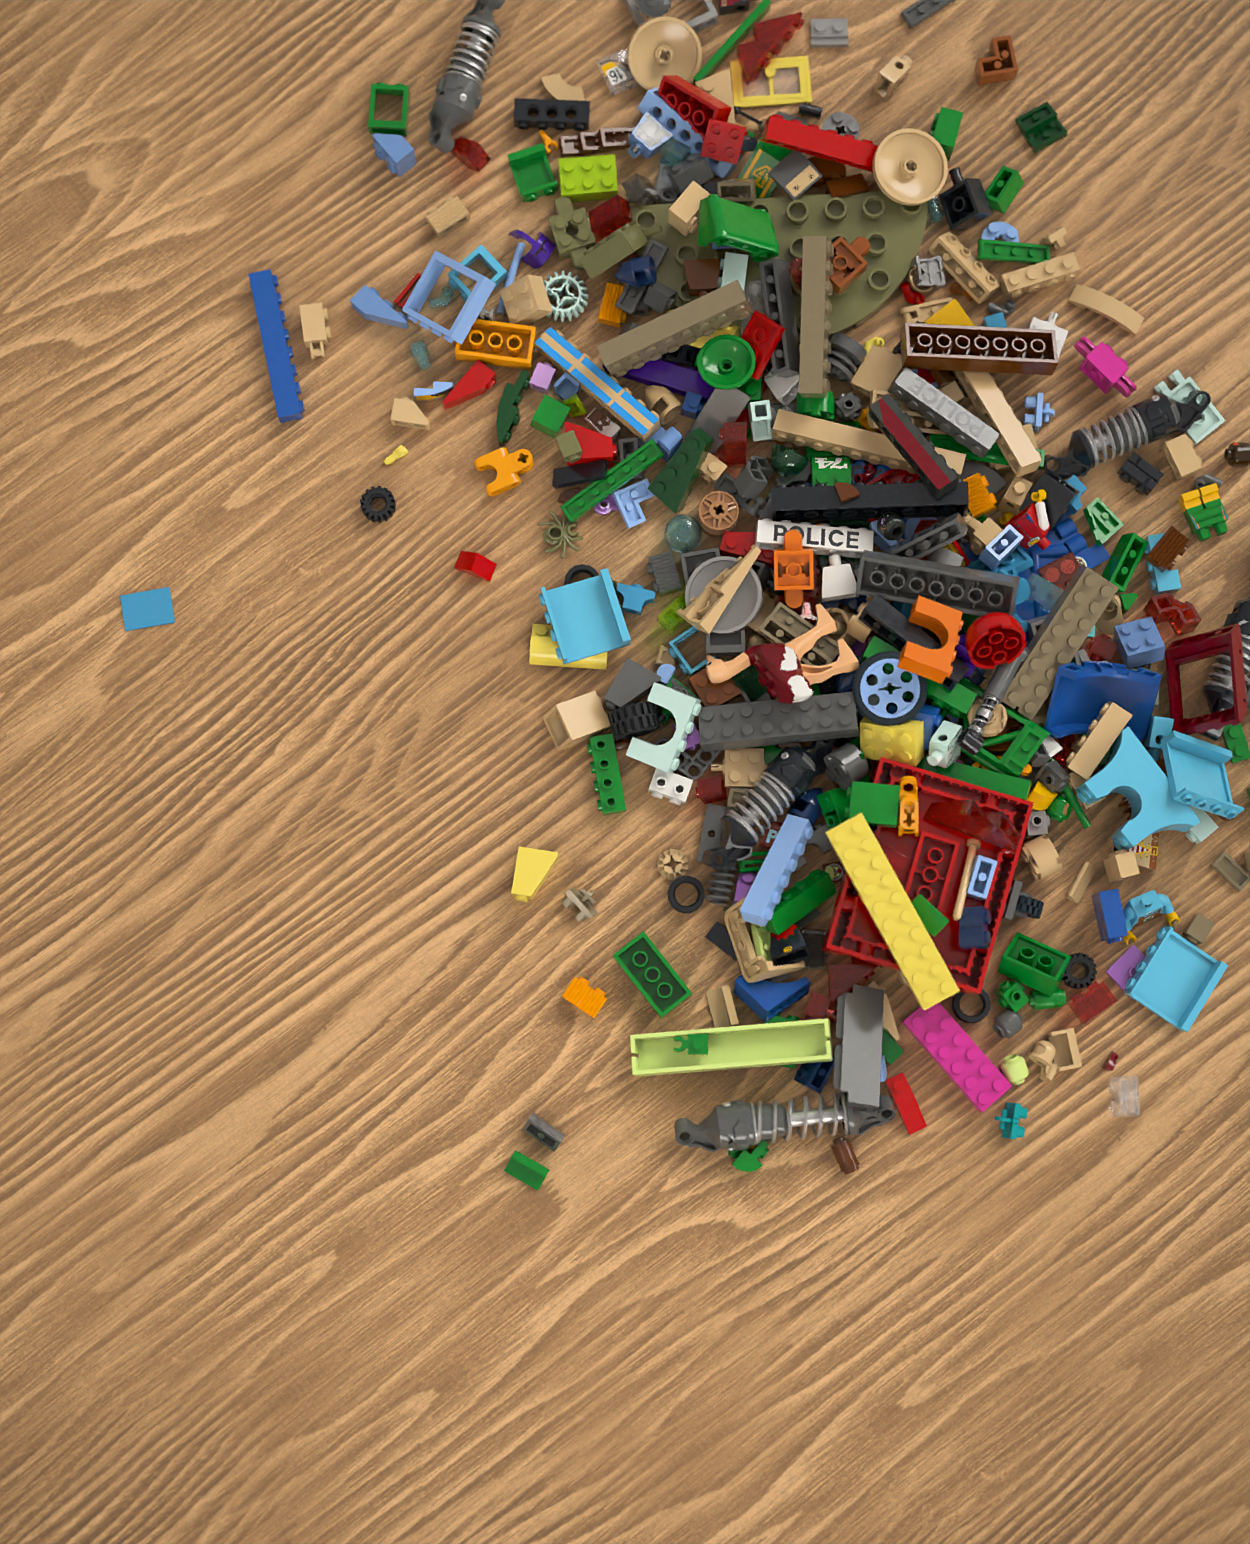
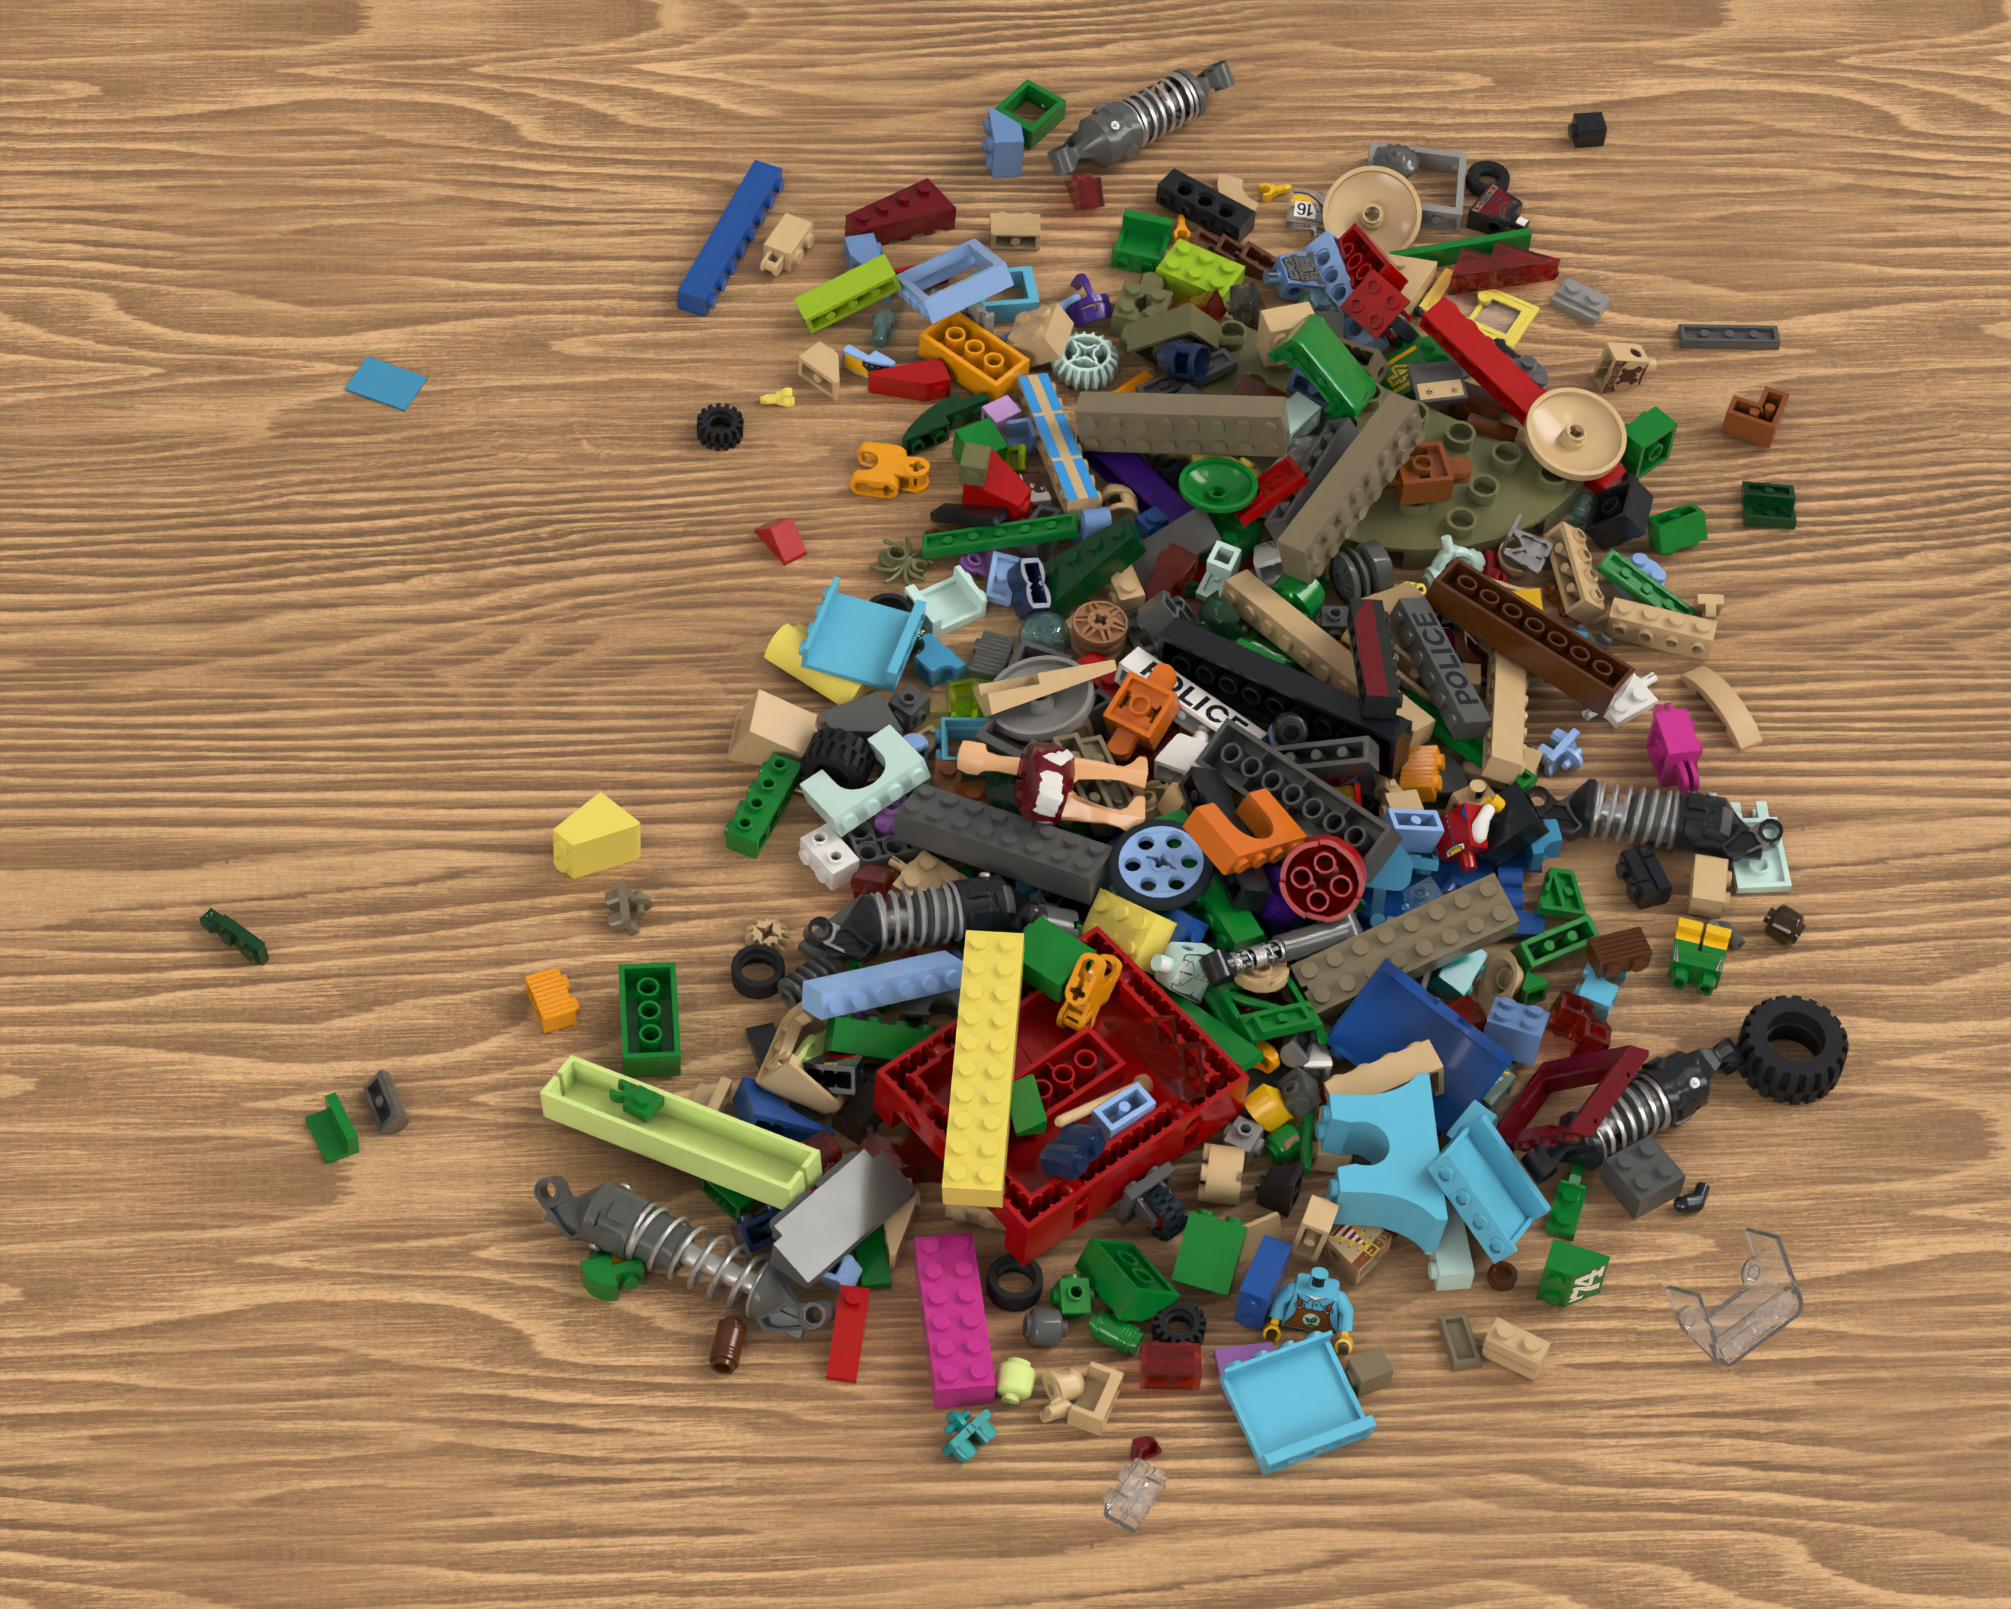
camera: 30 degrees right, 30 degrees down
(371, 1081) = (234, 934): none -> dark green hinge
(372, 250) = (904, 214): none -> dark red wedge
(386, 348) = (847, 293): none -> lime brick
(583, 68) = (1271, 191): none -> yellow piece
(608, 546) = (950, 603): none -> light aqua panel
(643, 639) = (910, 707): none -> dark grey brick
(655, 509) = (1028, 586): none -> dark blue brick
(846, 491) = (1259, 658): reddish brown tile -> none
(887, 311) = (1449, 553): none -> light aqua piece
(1069, 916) = (1209, 1252): none -> green brick
(1076, 841) = (1280, 1187): none -> black slope

